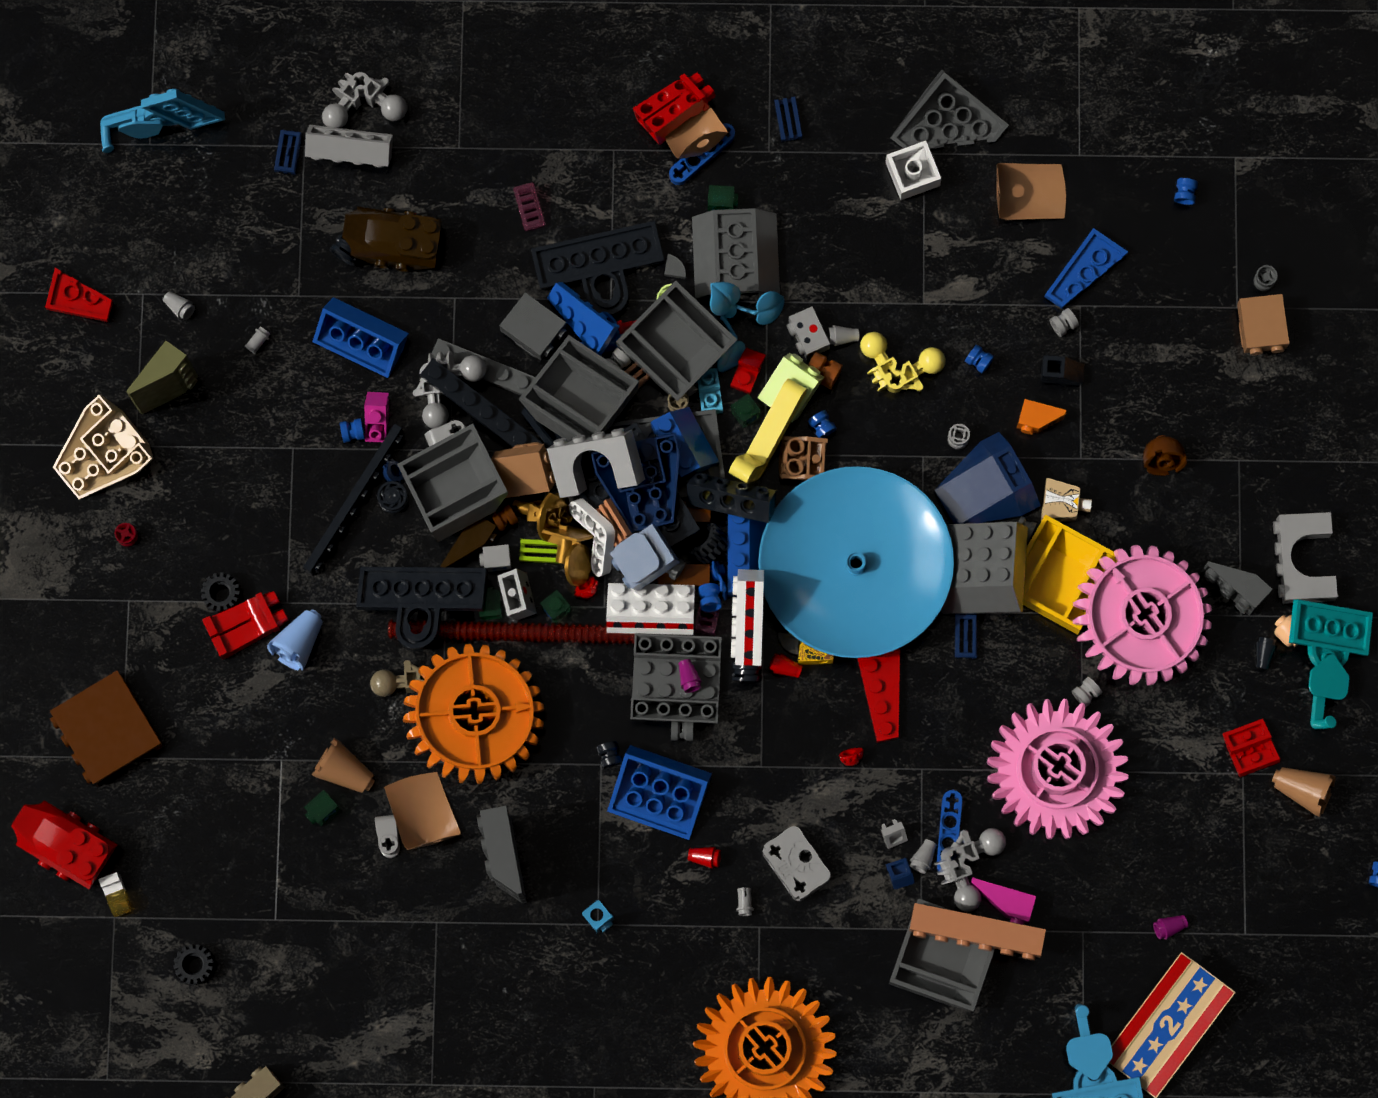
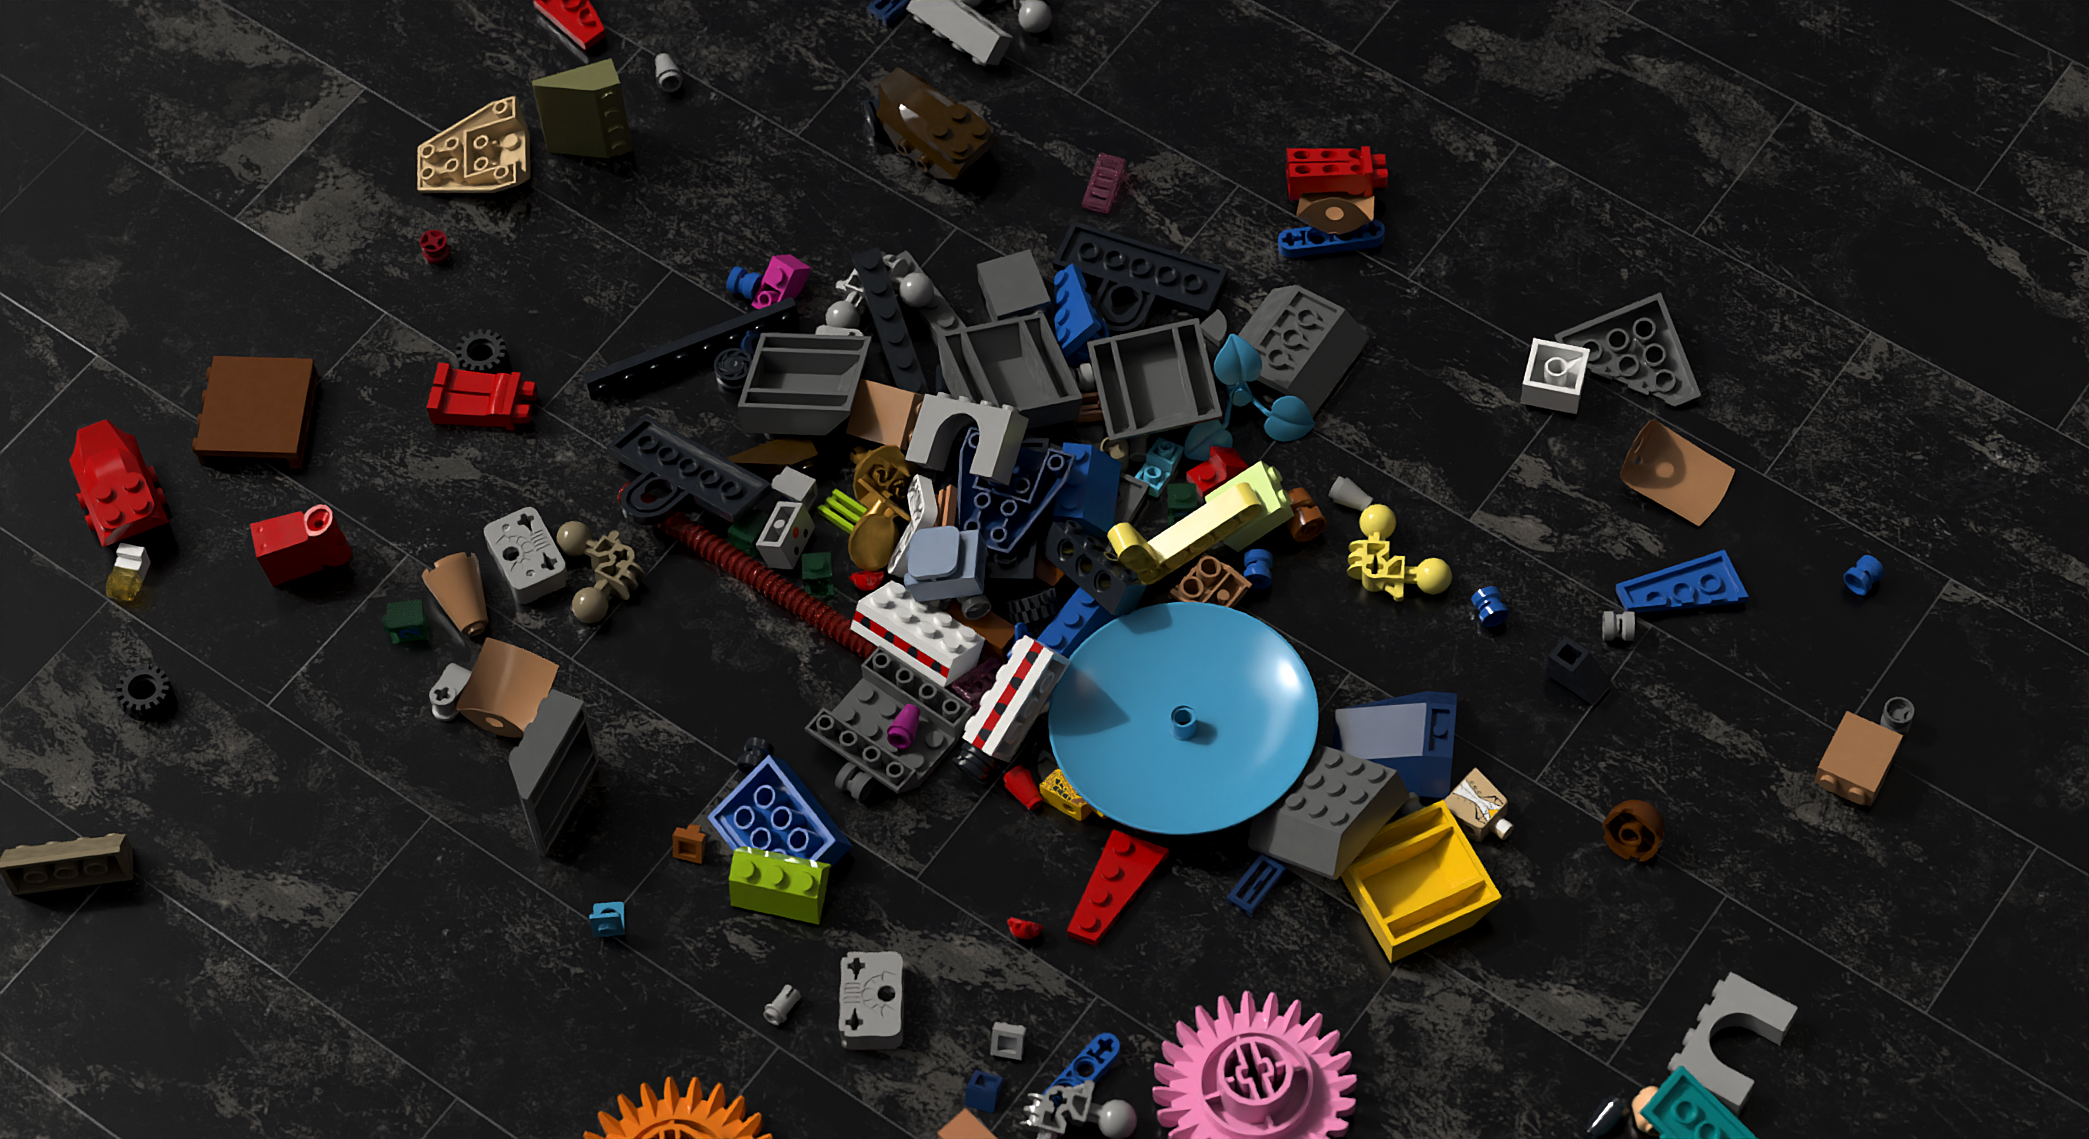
camera: 35 degrees right, 20 degrees down
(215, 804) = (299, 544): none -> red piece
(257, 340) = (719, 148): light grey pin -> none
(297, 640) = (519, 441): light blue cone -> none
(360, 337) = (825, 202): blue slope -> none
(363, 707) = (526, 555): none -> light grey axle
(504, 518) = (834, 457): reddish brown wheel -> none
(506, 708) = (639, 615): orange gear -> none
(612, 837) = (689, 844): none -> dark orange tile
(689, 827) = (778, 884): none -> lime slope
(705, 856) = (776, 929): red cone -> none
(709, 597) = (990, 661): blue wheel -> none
(721, 198) = (1320, 283): clear green brick -> none
(785, 102) = (1460, 241): dark blue tile -> none
(808, 333) = (1314, 468): light grey brick -> none
(923, 857) = (1018, 1087): light grey cone -> none
(958, 440) = (1406, 670): light grey wheel -> none
(1038, 416) = (1515, 705): orange slope -> none
(1086, 691) = (1347, 1030): light grey wheel -> none
(1170, 621) = (1514, 953): bright pink gear -> none
(1240, 586) = (1625, 1020): dark grey slope -> none

